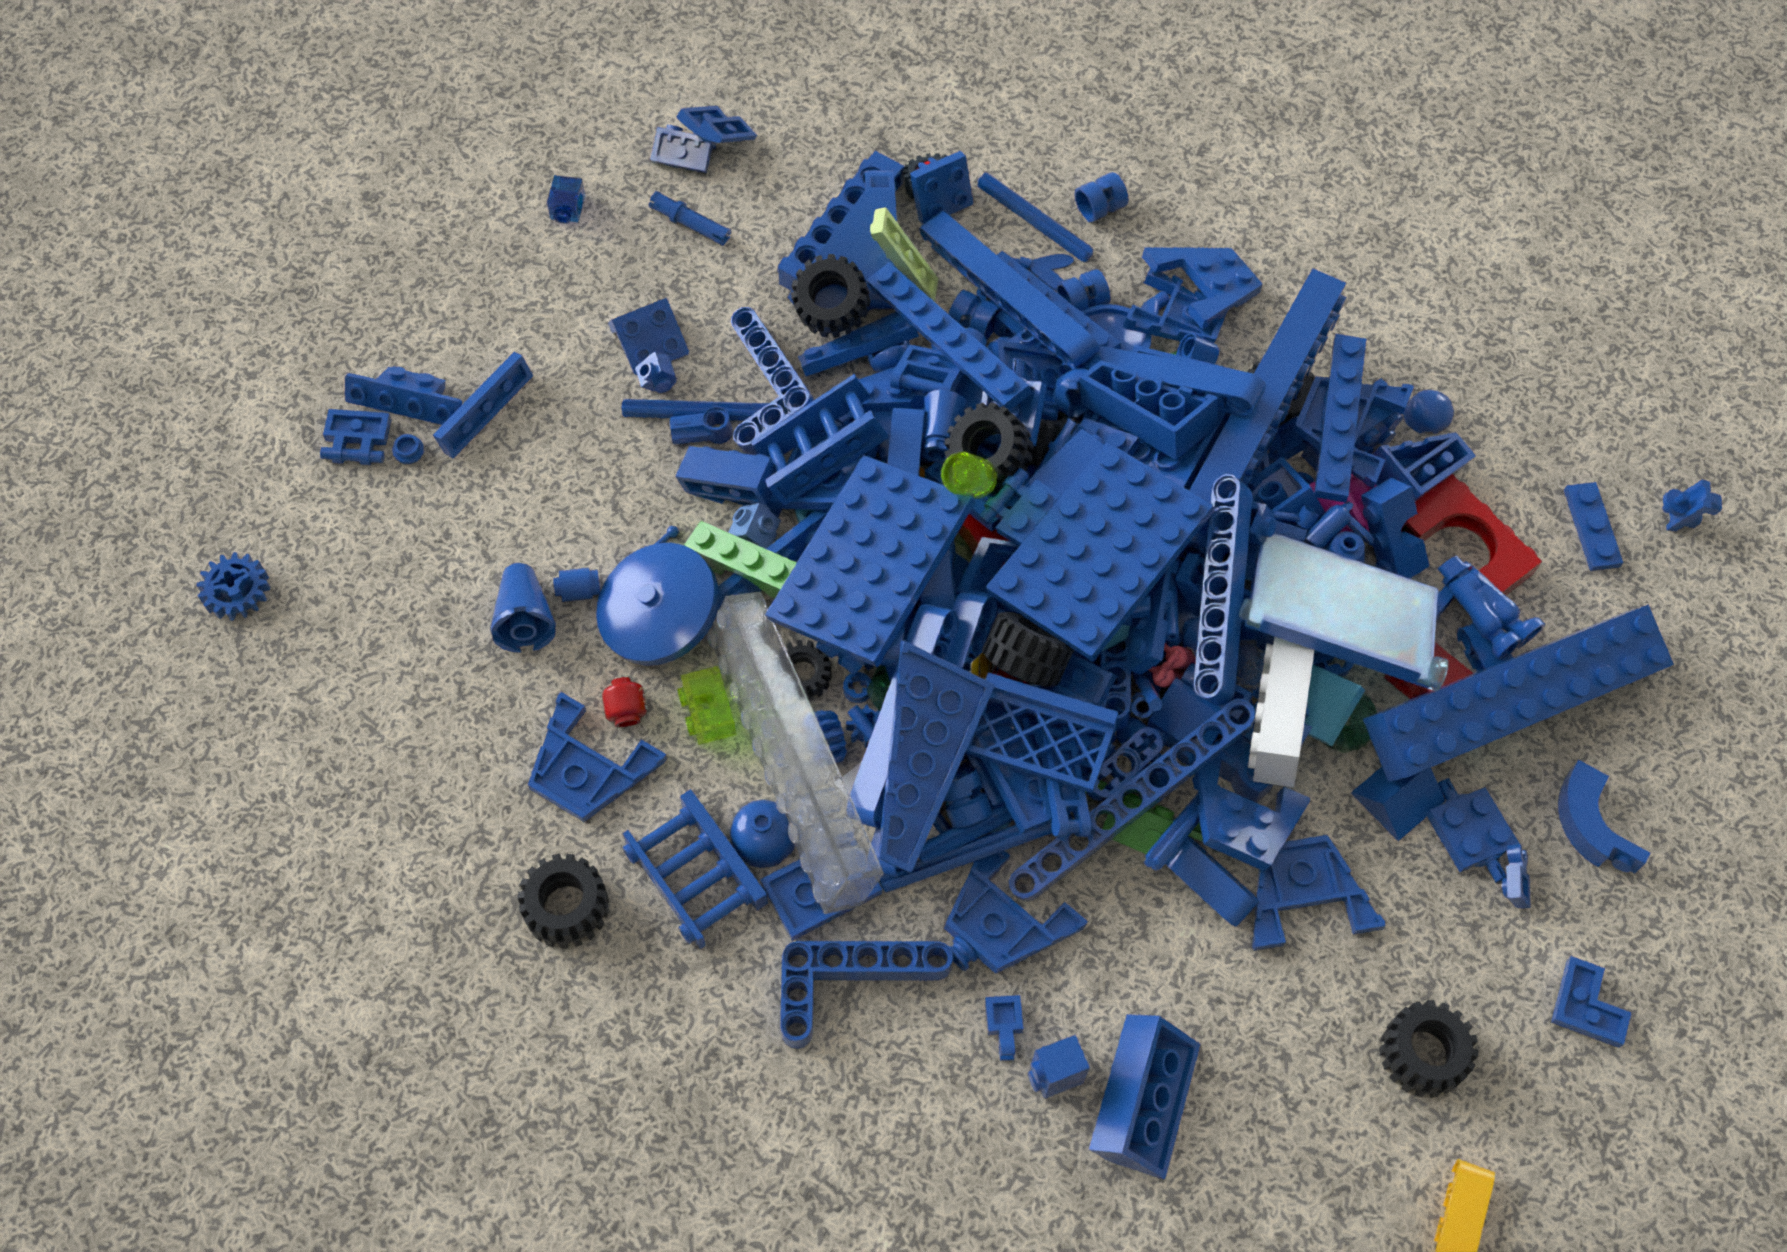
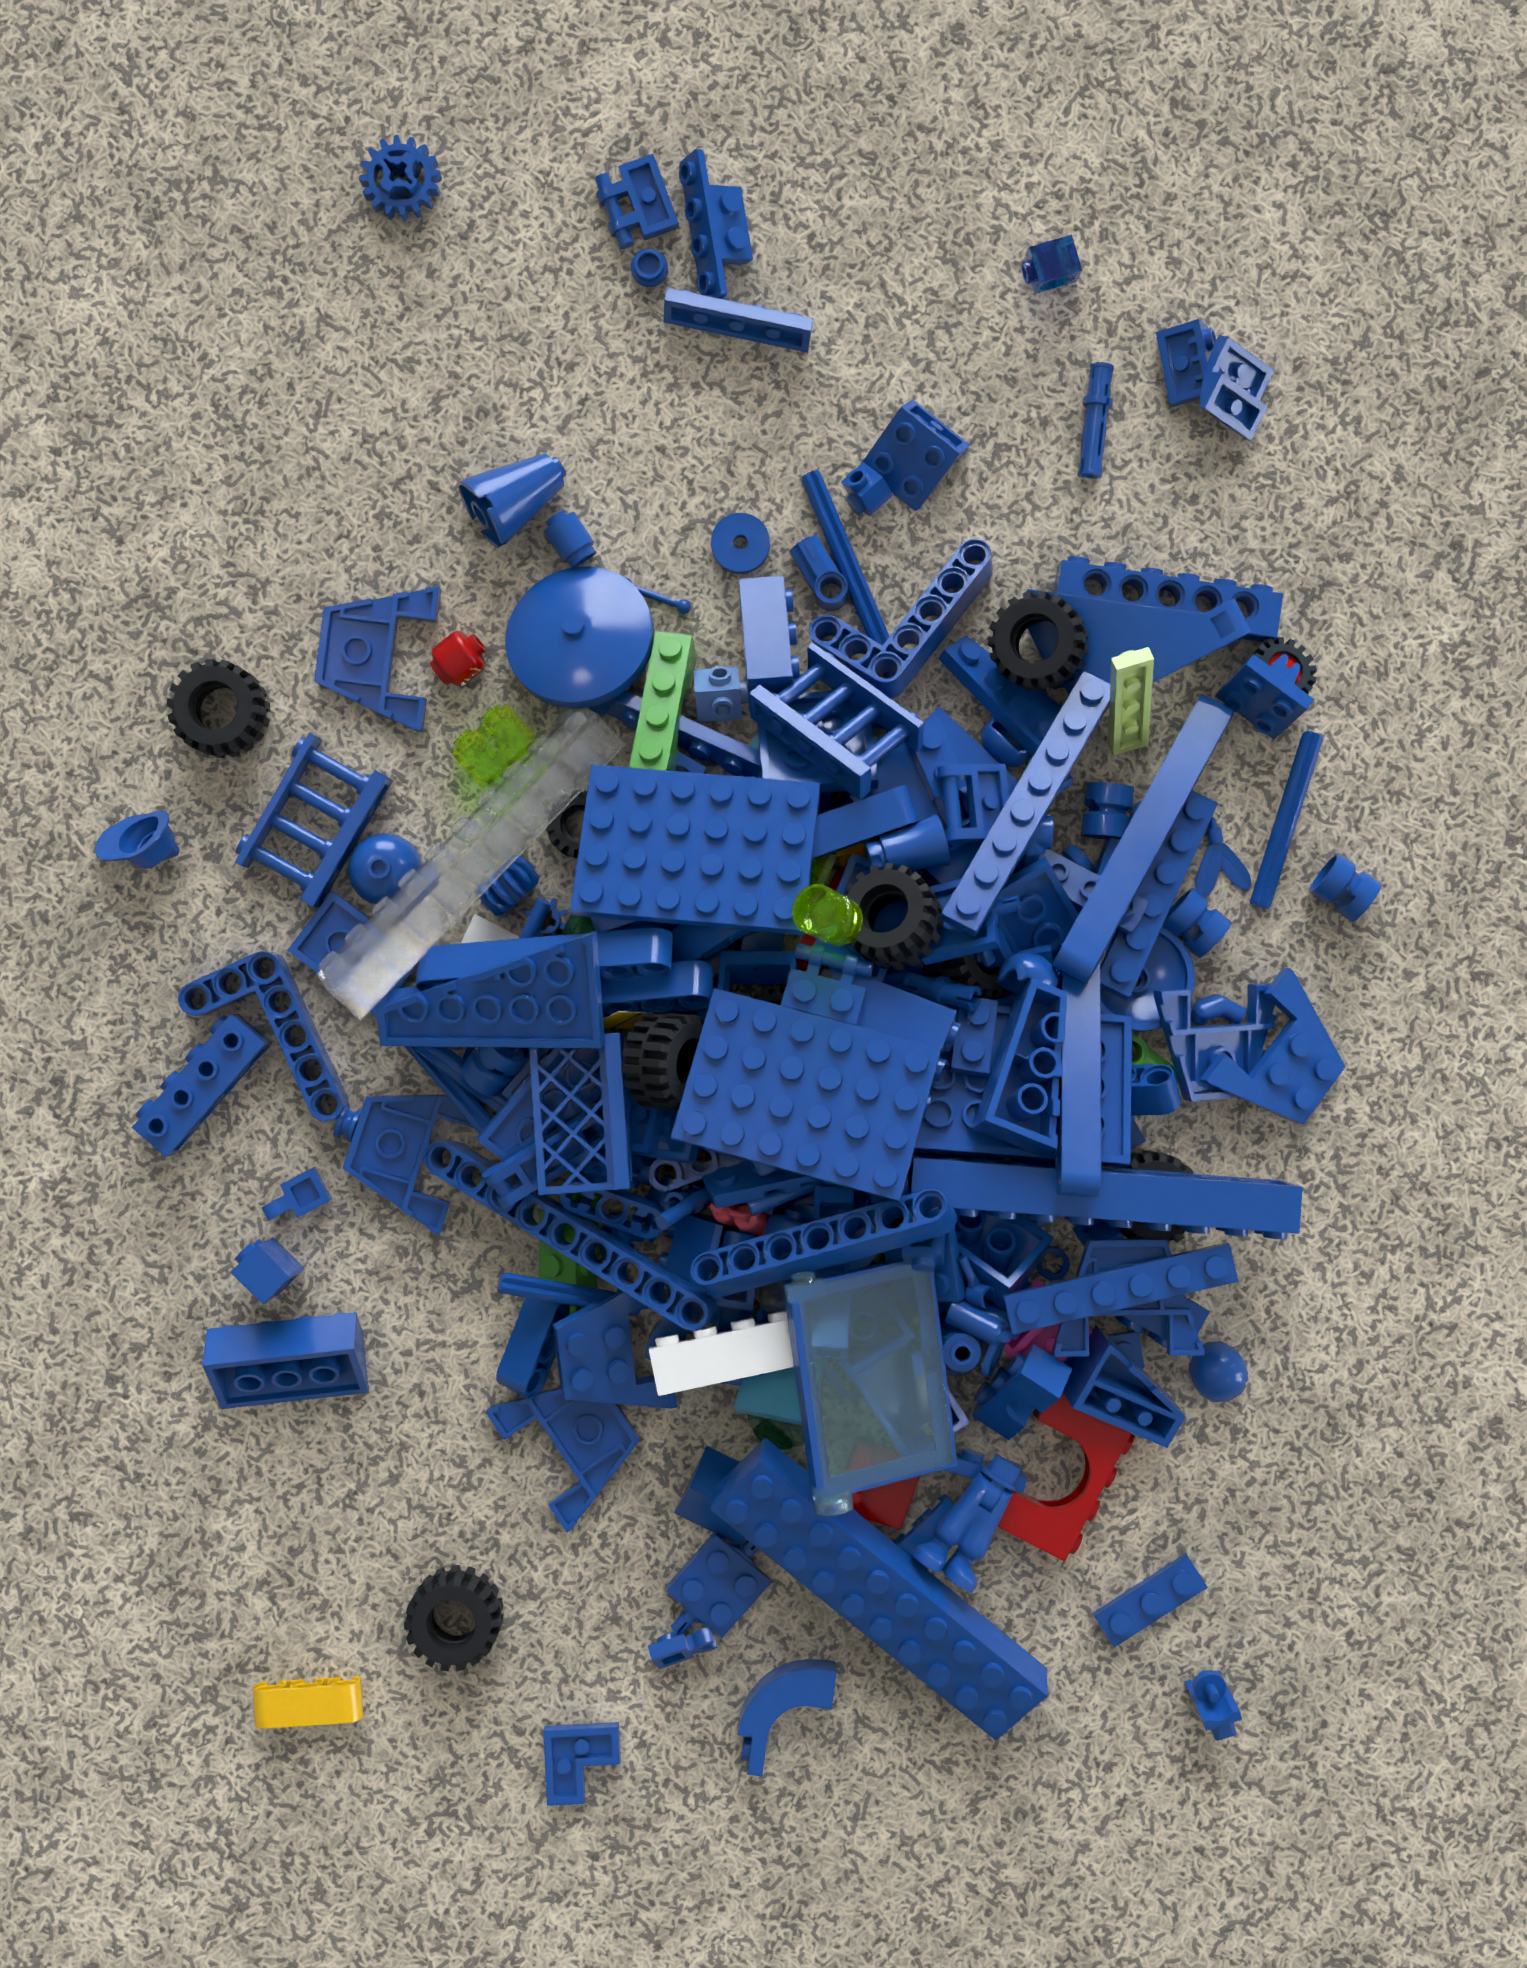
camera: 70 degrees right, 25 degrees up
(638, 1014) = (139, 839): none -> blue piece
(647, 461) = (743, 526): none -> blue piece
(872, 1061) = (201, 1084): none -> blue brick

